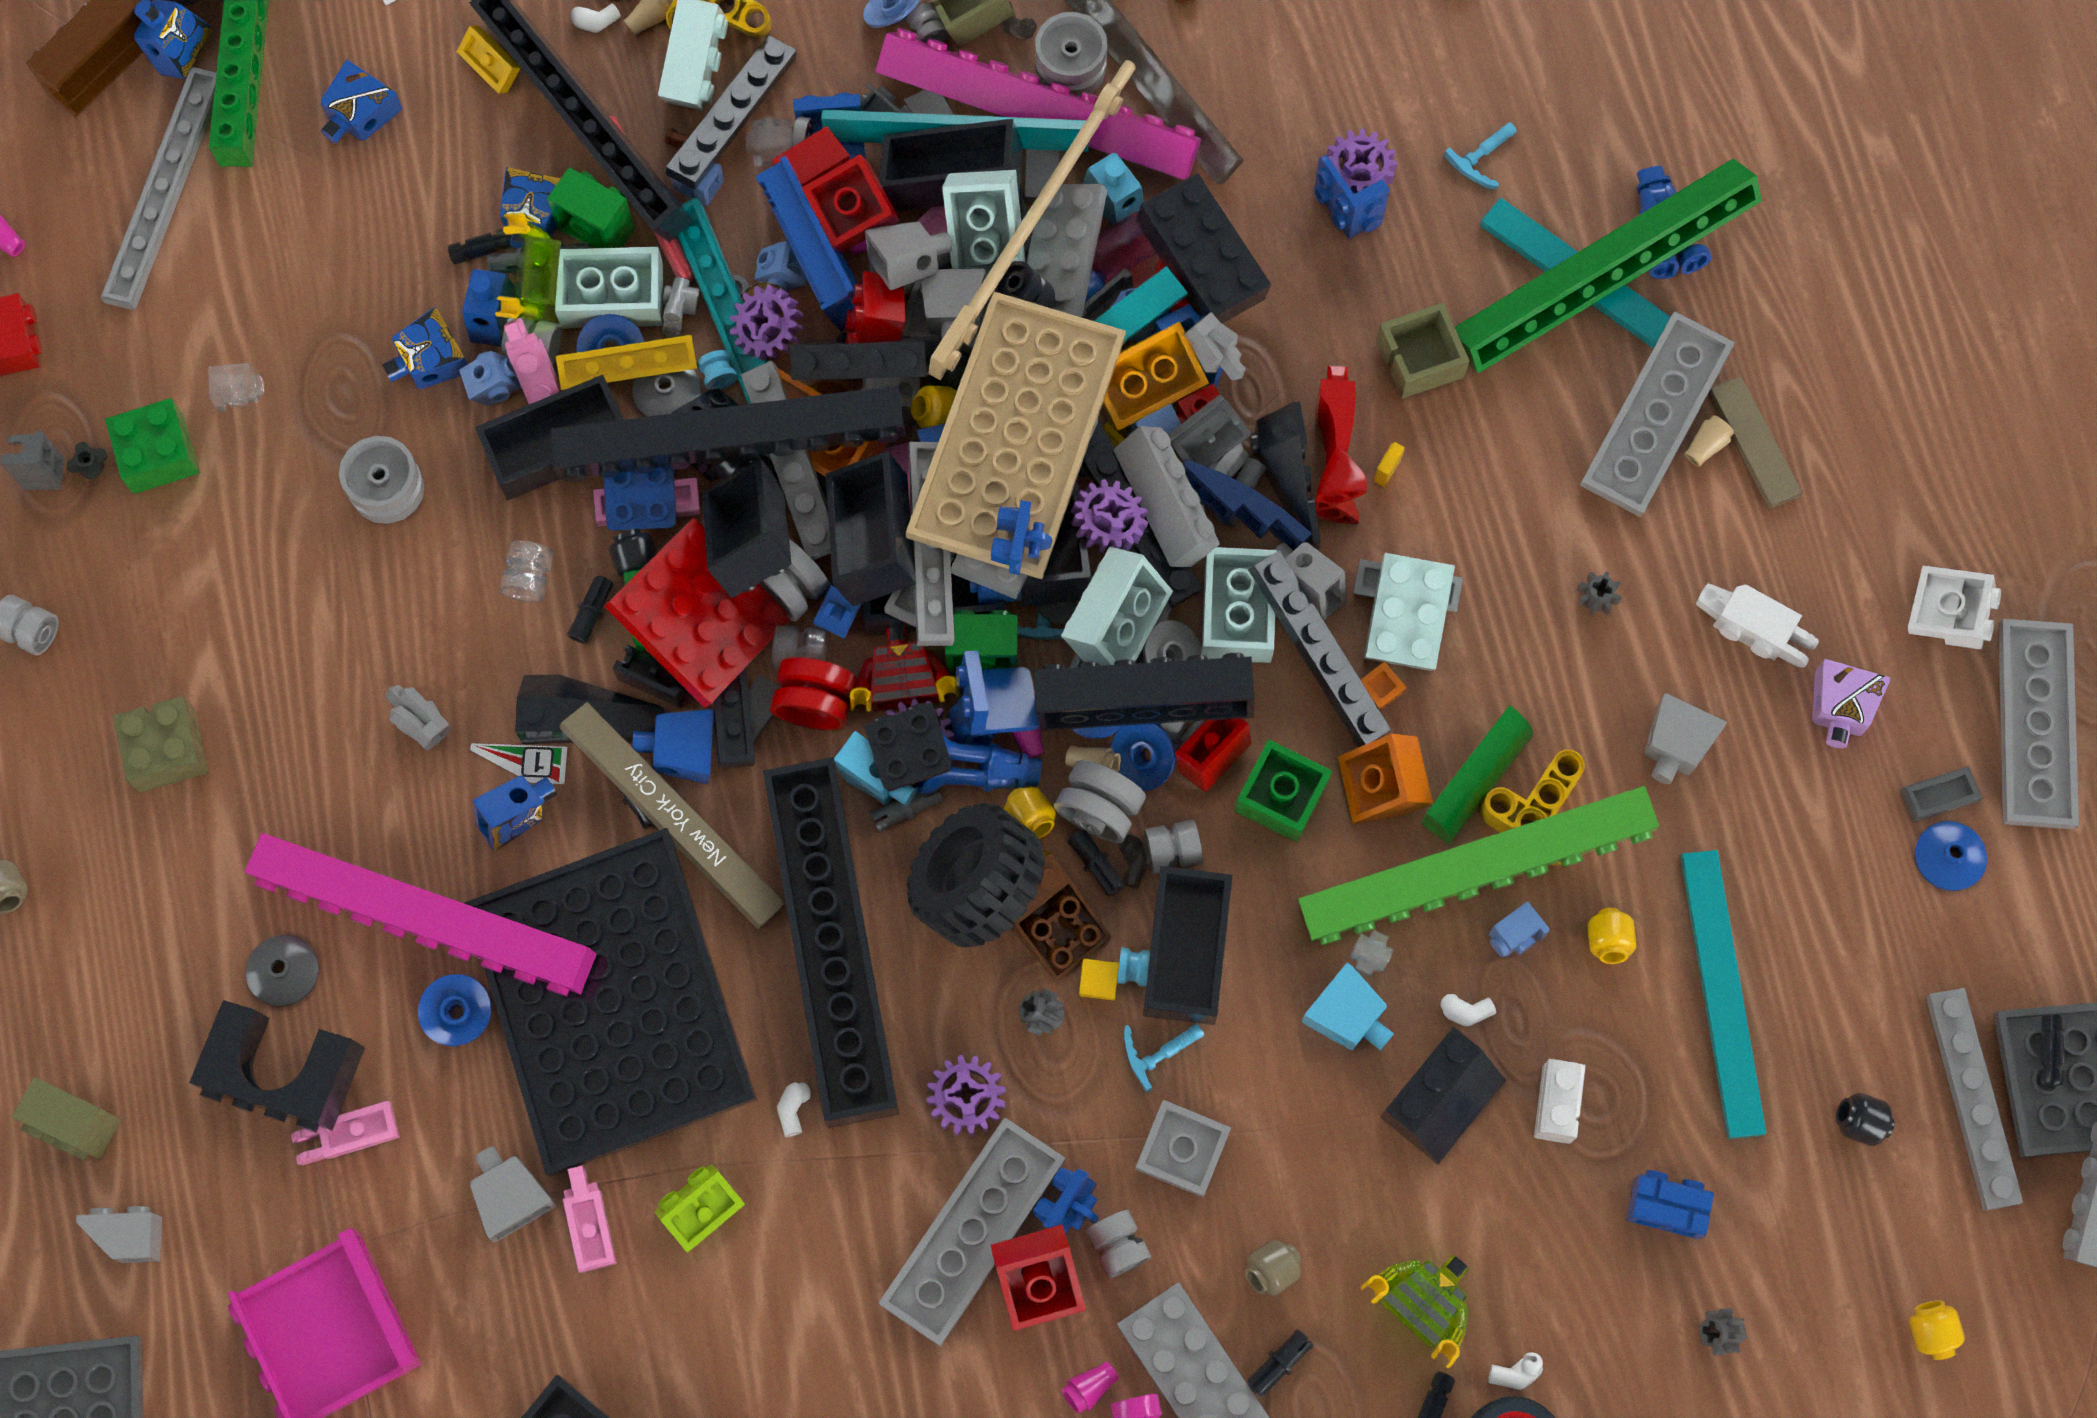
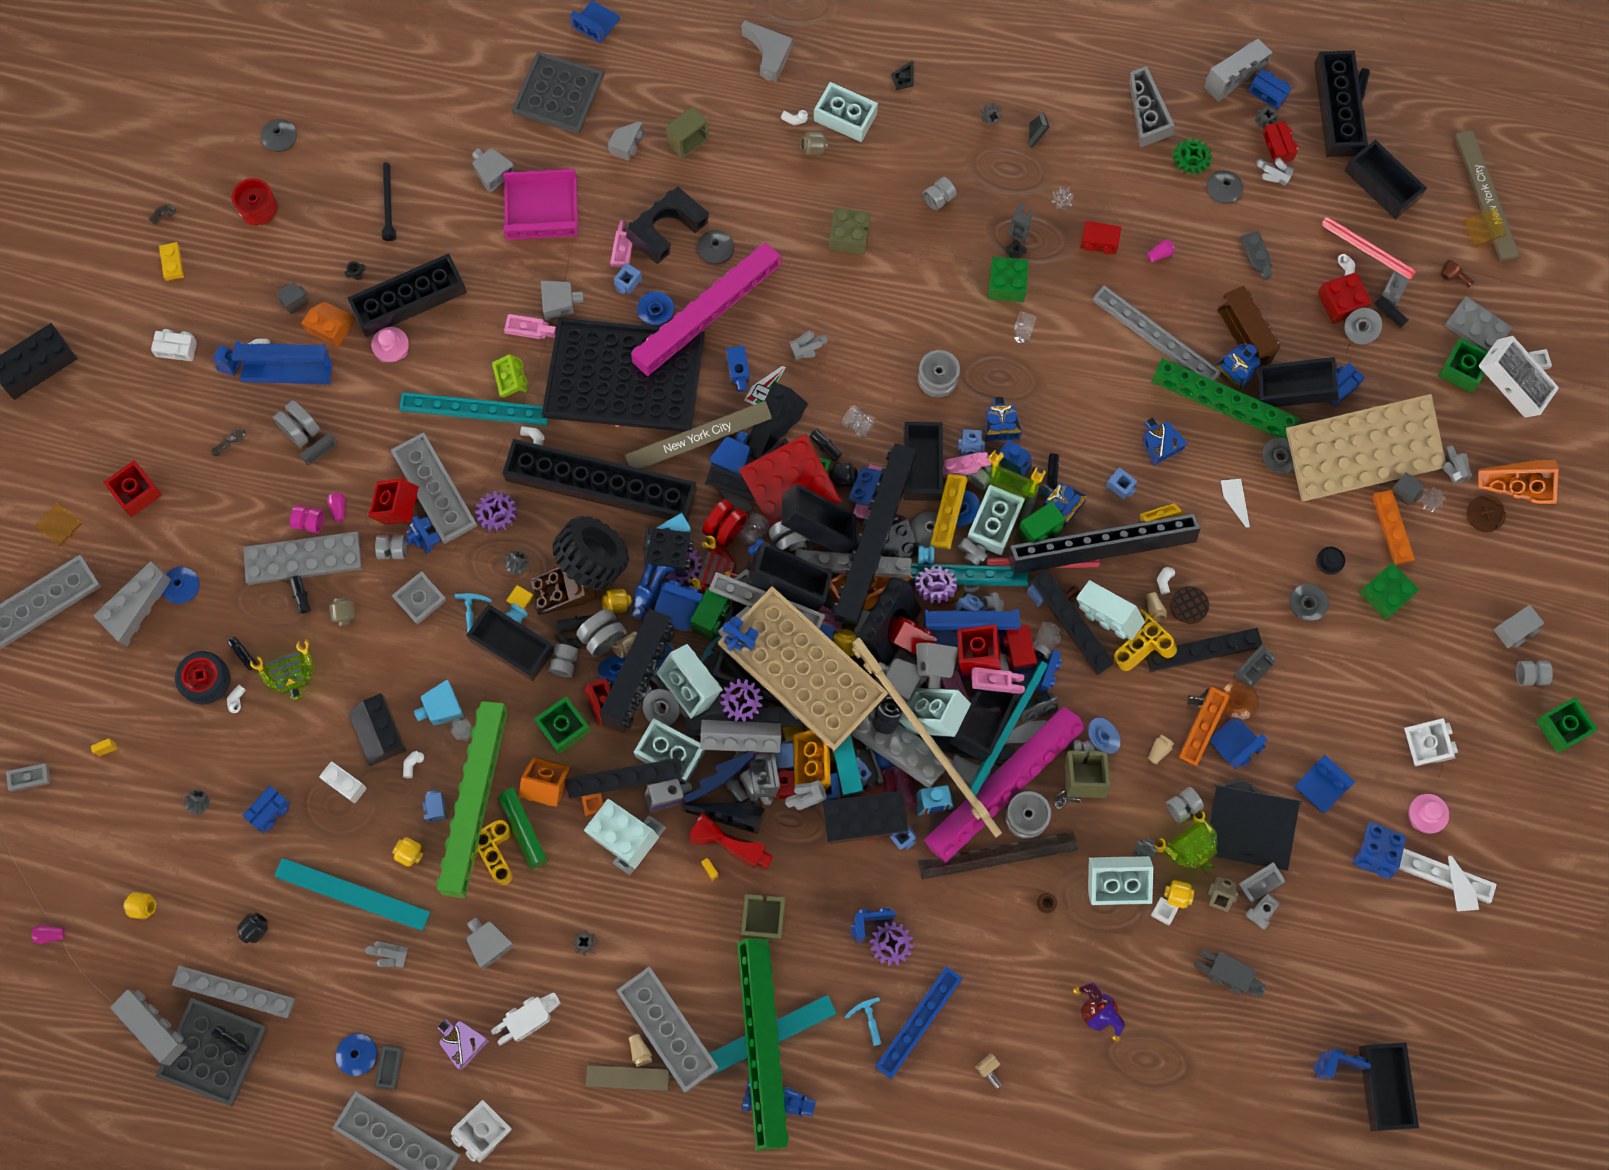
camera: 115 degrees right, 0 degrees up
(405, 1085) = (630, 275): none -> medium blue brick
(450, 137) = (1119, 478): none -> medium blue brick
(759, 234) = (992, 603): none -> light grey plate
(790, 1245) = (472, 408): none -> teal tile
(890, 162) = (996, 680): none -> bright pink hinge
(1451, 84) = (918, 1022): none -> blue plate
(1783, 876) = (393, 954): none -> light grey rock

